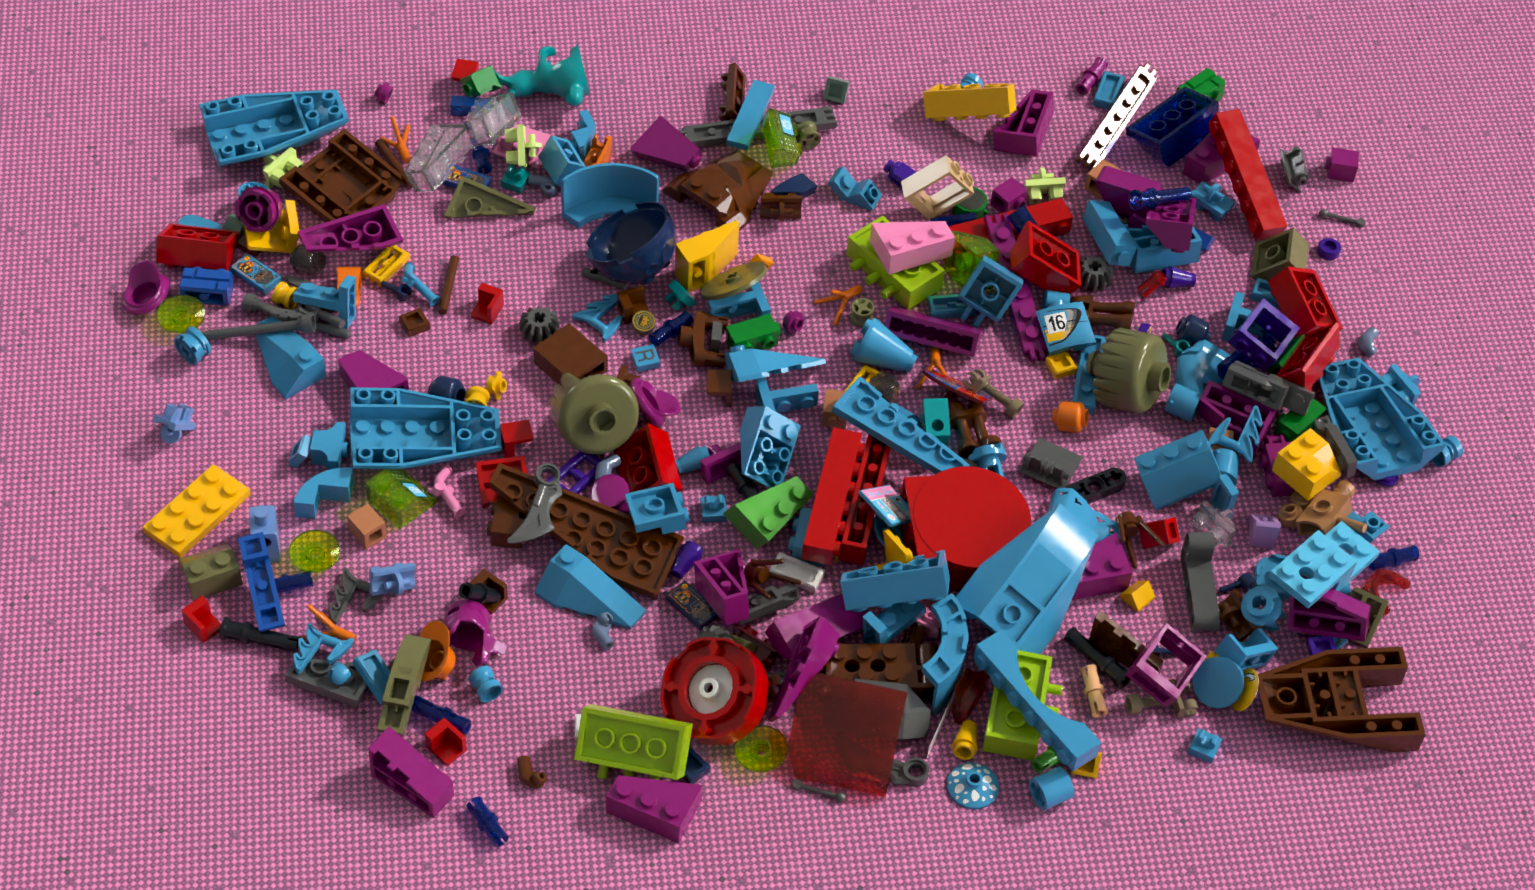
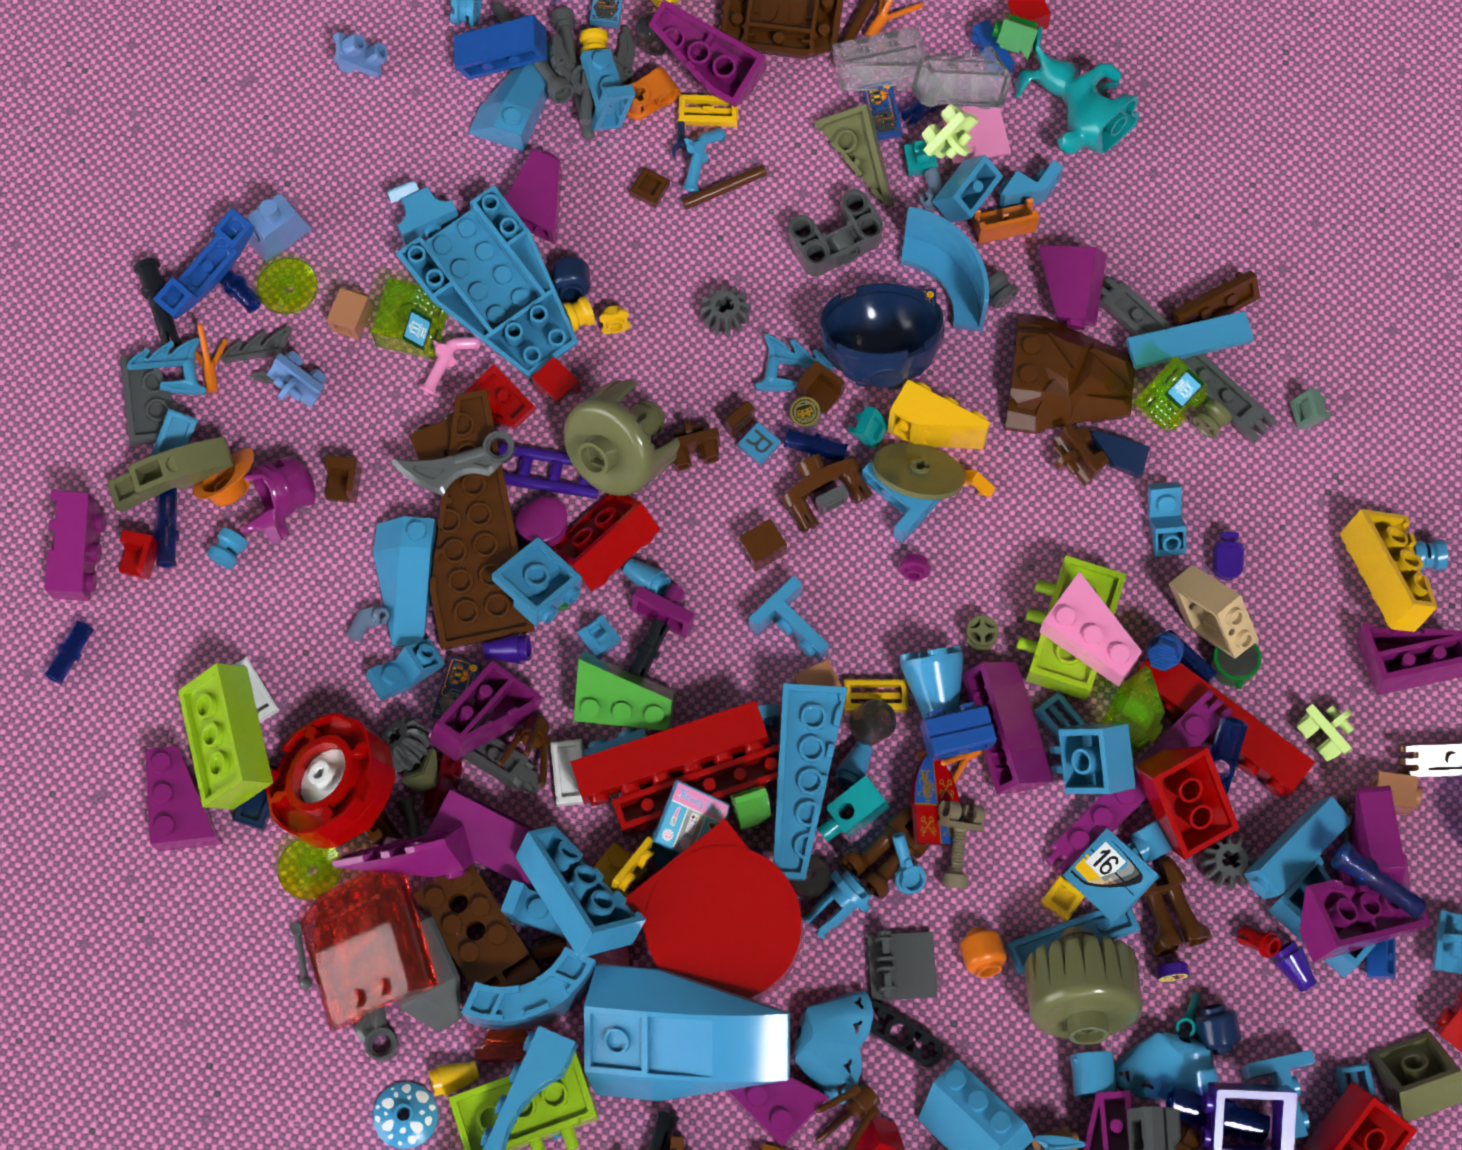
camera: 65 degrees right, 20 degrees up
(196, 511) = (275, 147): yellow plate -> none
(200, 620) = (143, 238): red panel -> none
(211, 571) = (203, 201): olive slope -> none
(245, 339) = (500, 47): none -> blue brick
(328, 485) = (353, 237): dark azure brick -> none
(339, 673) = (145, 405): dark azure hinge -> none
(480, 593) = (319, 474): black pin -> none
(489, 303) = (720, 244): red panel -> none
(527, 776) = (147, 657): reddish brown arm -> none
(537, 258) = (840, 245): none -> dark grey beam
(571, 353) = (699, 370): reddish brown brick -> none
(605, 467) = (576, 494): sand blue arm -> none
(621, 353) = (739, 418): none -> reddish brown tile
(653, 402) = (684, 489): magenta piece -> none
(656, 623) = (407, 670): none -> dark azure slope
(754, 333) = (862, 536): green brick -> none
(755, 363) = (819, 566): dark azure wedge -> none
(766, 445) = (701, 643): dark azure slope -> none
(844, 296) = (996, 600): orange plant -> none
(899, 465) = (751, 807): none -> bright green slope
(924, 345) = (957, 731): none -> blue brick
(941, 723) = (462, 1037): white sticker -> none
(949, 217) = (1165, 650): none -> blue piece
(994, 425) = (910, 876): none -> dark azure plate
(1009, 196) = (1282, 700): magenta brick -> none

